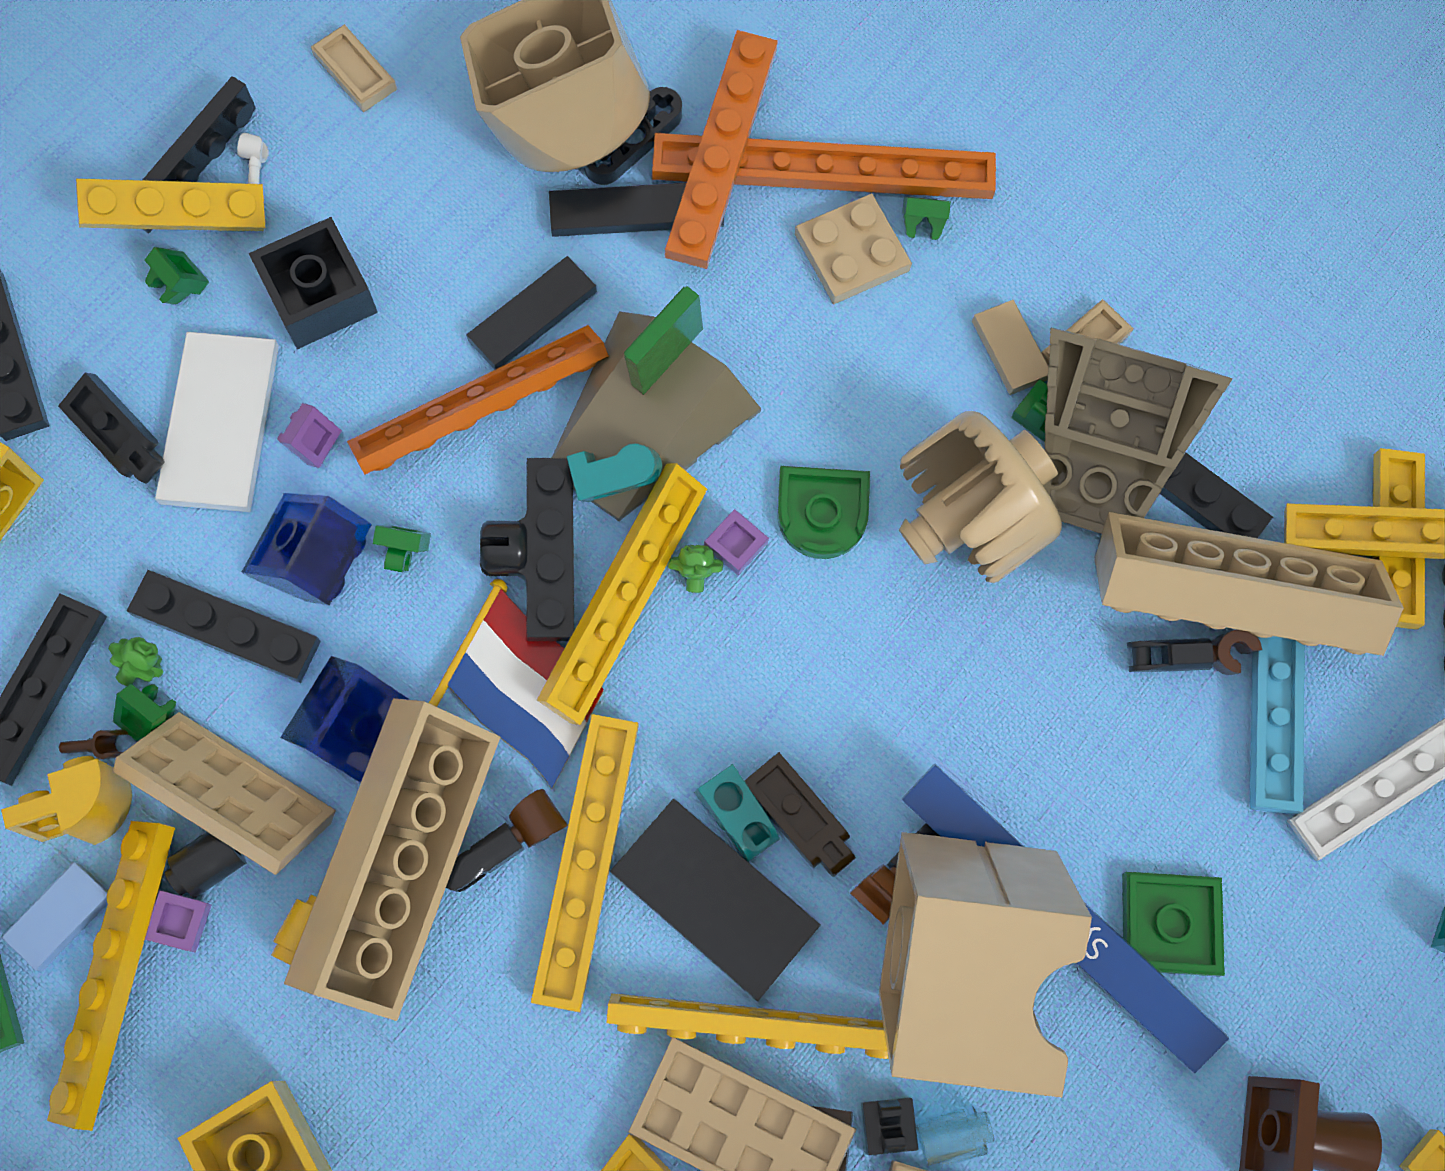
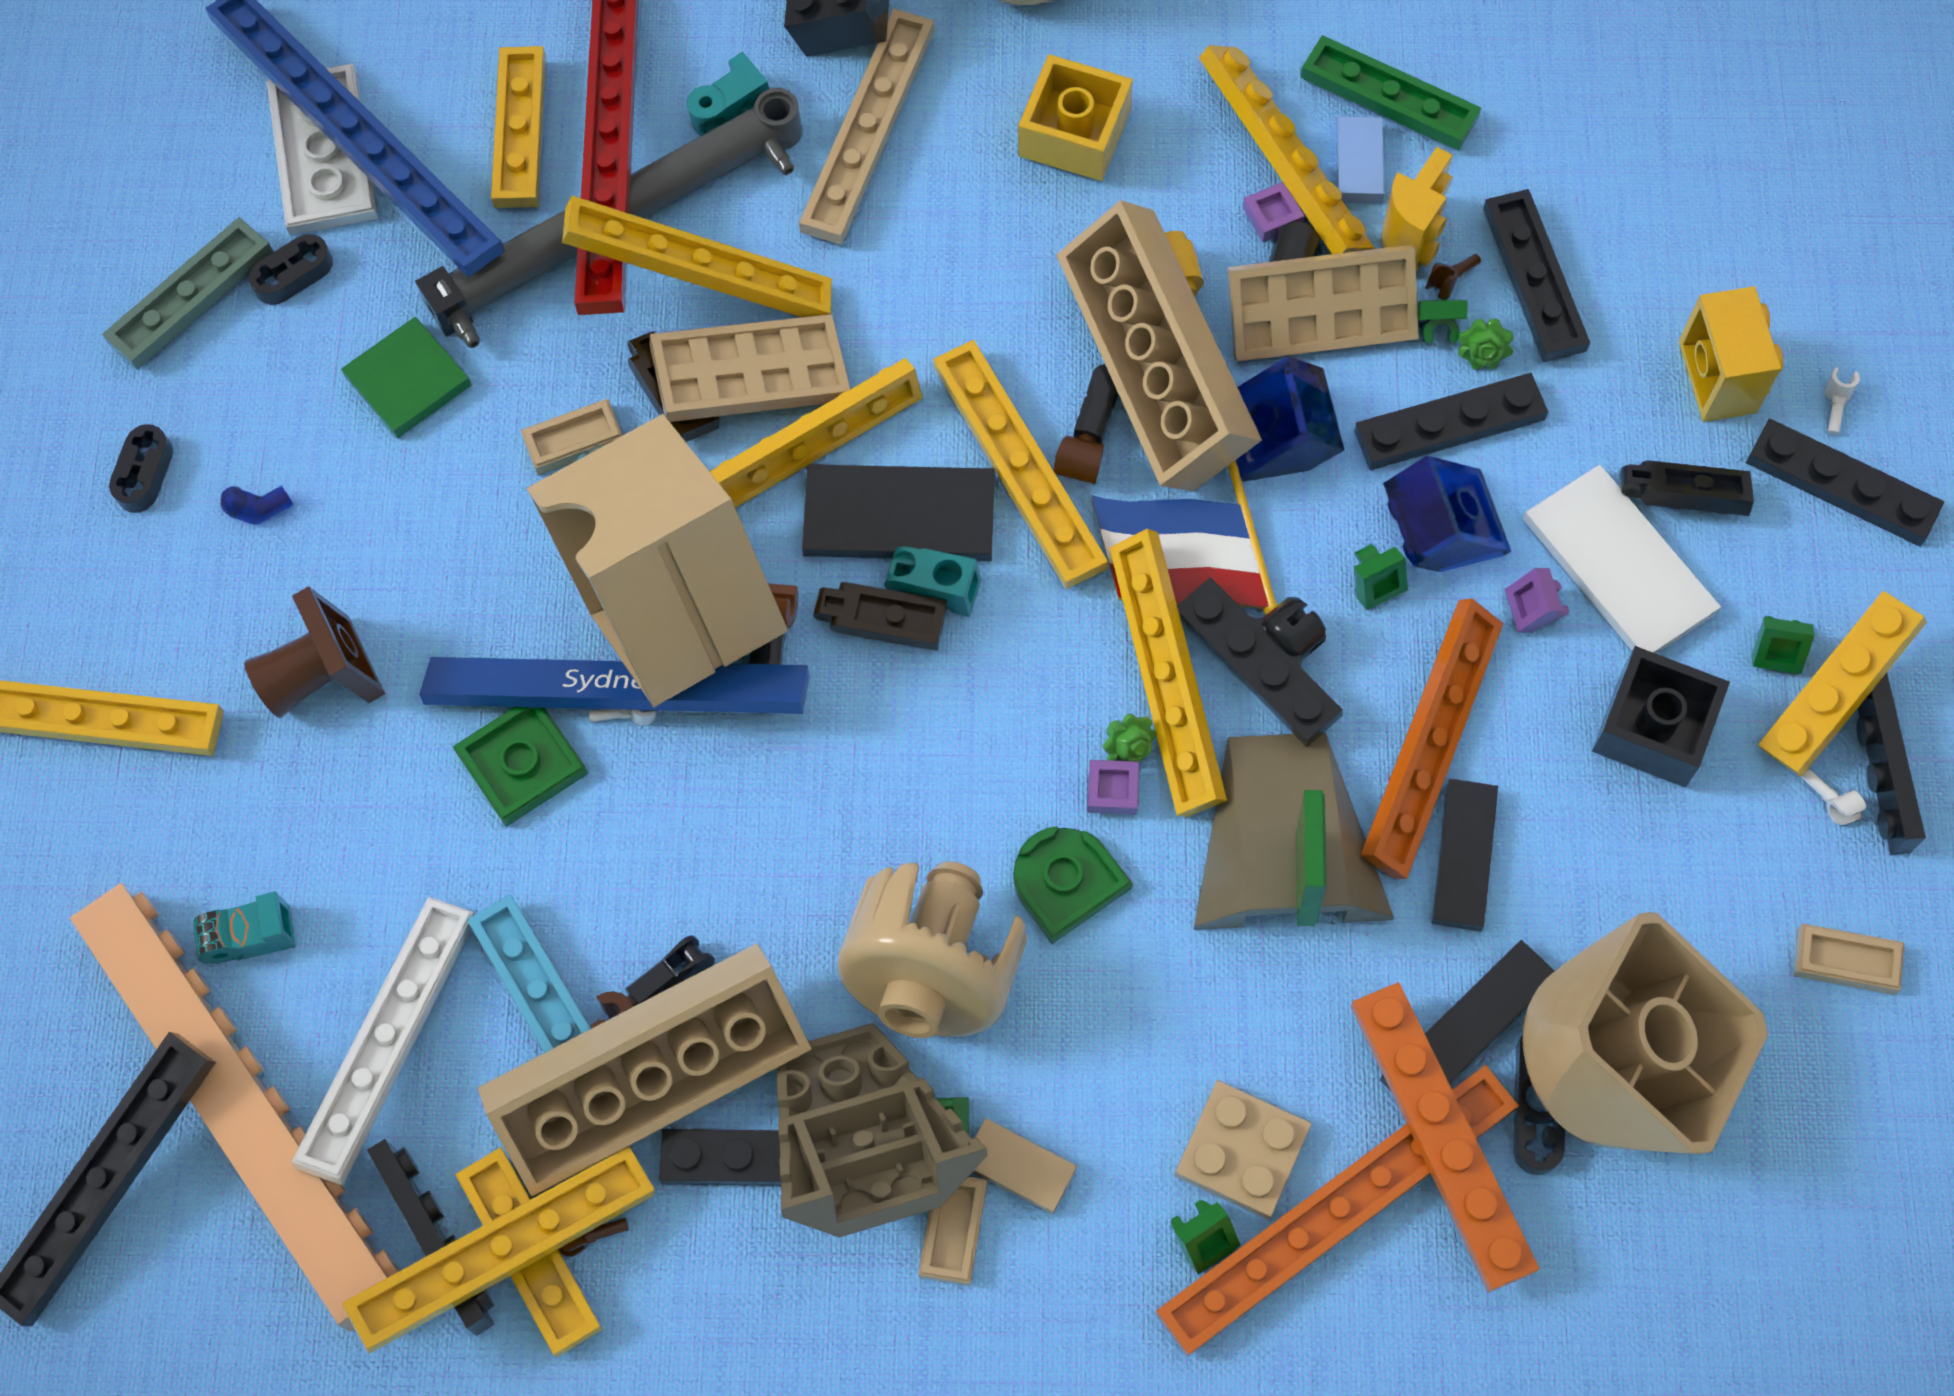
camera: 150 degrees right, 5 degrees down
(628, 470) = (1260, 749): teal leg -> none

